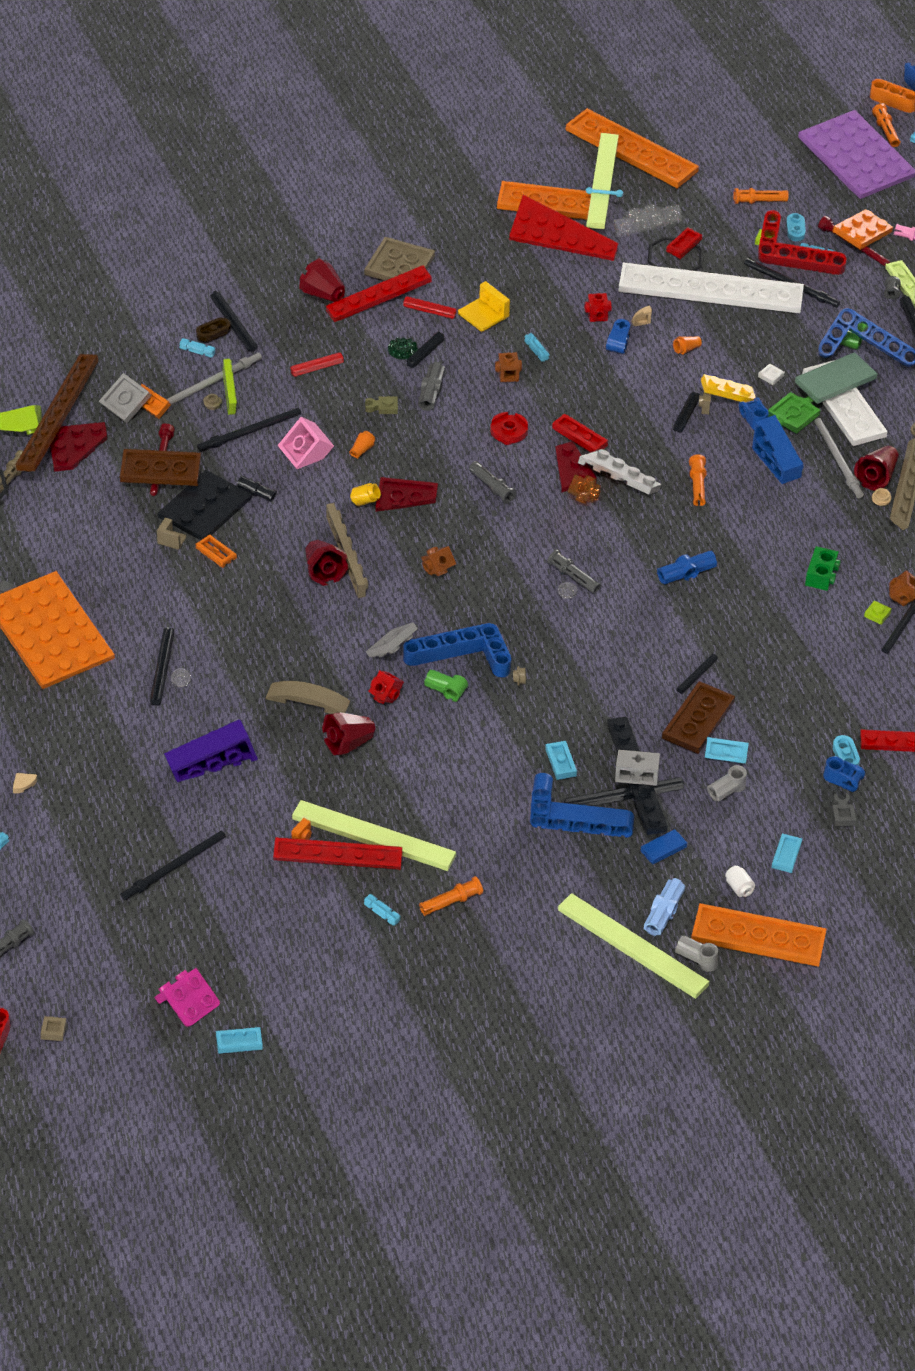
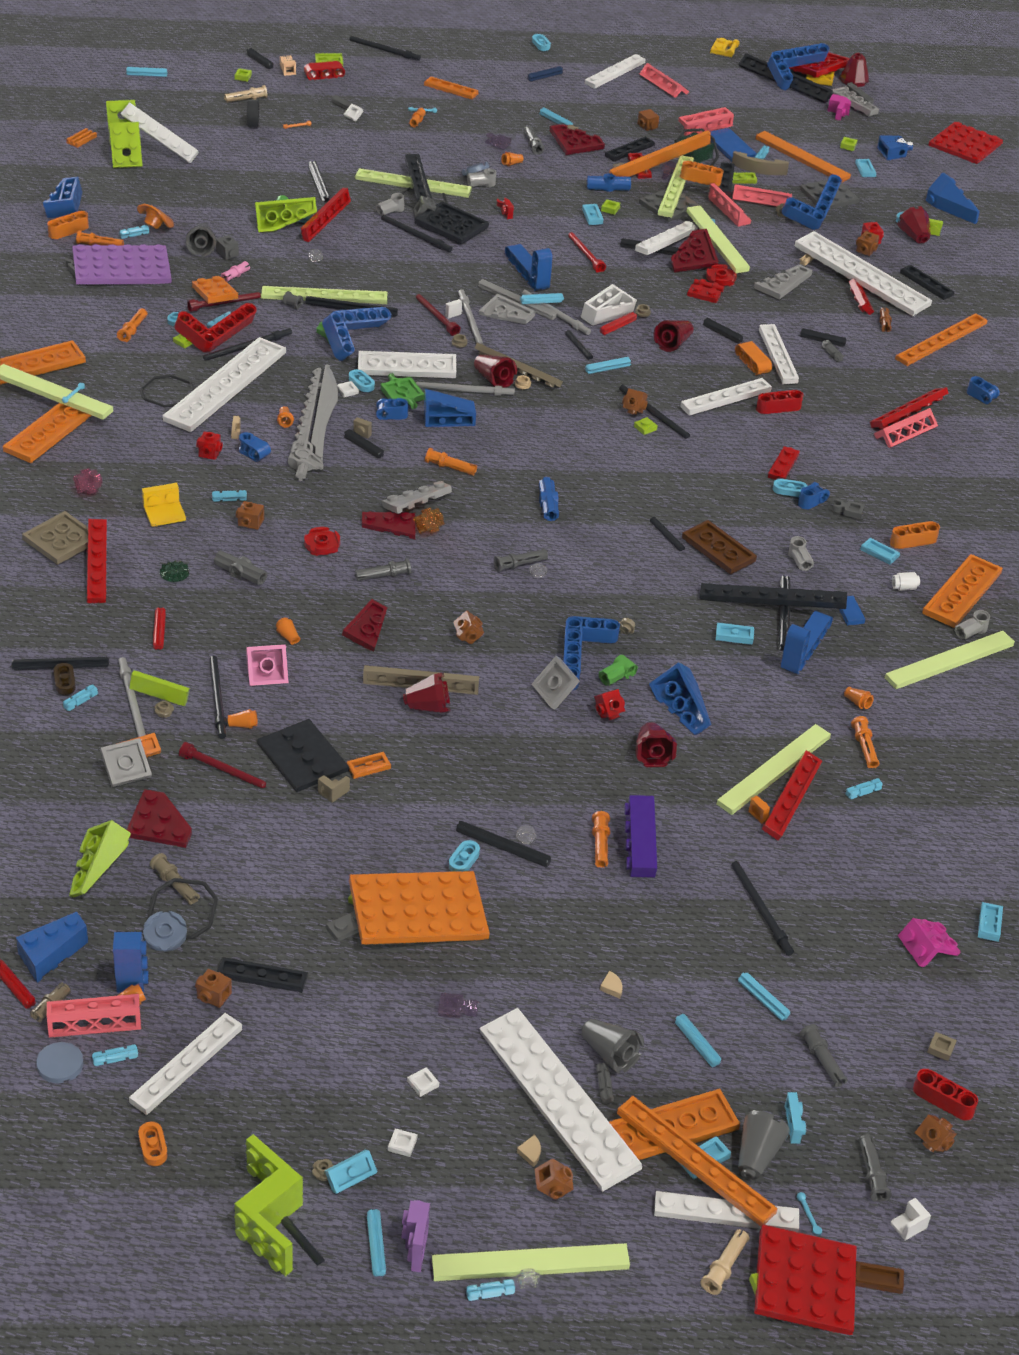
camera: 70 degrees left, 5 degrees down
(56, 413) = (110, 809): reddish brown plate -> none
(58, 889) = (764, 996): none -> medium azure axle
(128, 643) = (461, 859): none -> medium azure plate
(160, 467) = (242, 764): reddish brown plate -> none
(210, 724) = (601, 832): none -> orange pin
(226, 454) = (243, 719): none -> orange cone
(256, 488) = (304, 713): black pin -> none
(308, 694) = (587, 759): dark tan slope -> none
(322, 281) = (63, 585): dark red cone -> none
(365, 494) = (359, 645): yellow brick -> none
(385, 405) = (241, 603): olive plate -> none
(425, 350) = (186, 557): black axle -> none
(429, 307) = (132, 539): red axle -> none
(442, 734) = (682, 696): none -> blue wedge
(485, 249) = (87, 481): none -> clear pink brick
(517, 879) = (861, 698): none -> orange cone
(550, 229) = (87, 441): red wing -> none
(579, 433) = (356, 505): red plate -> none
(637, 767) = (782, 585): light grey brick -> none
(643, 375) = (301, 453): none -> light grey piece
(647, 219) = (113, 387): clear bracket -> none
(664, 906) = (918, 628): light blue piece -> none
(684, 243) = (160, 379): red plate -> none
(726, 750) = (763, 543): medium azure plate -> none
(727, 389) = (360, 410): yellow plate -> none
(786, 380) = (362, 380): none -> medium azure plate
(822, 568) = (588, 433): green brick -> none
(829, 874) = (914, 535): none -> orange beam
(835, 377) = (383, 356): sand green tile -> none

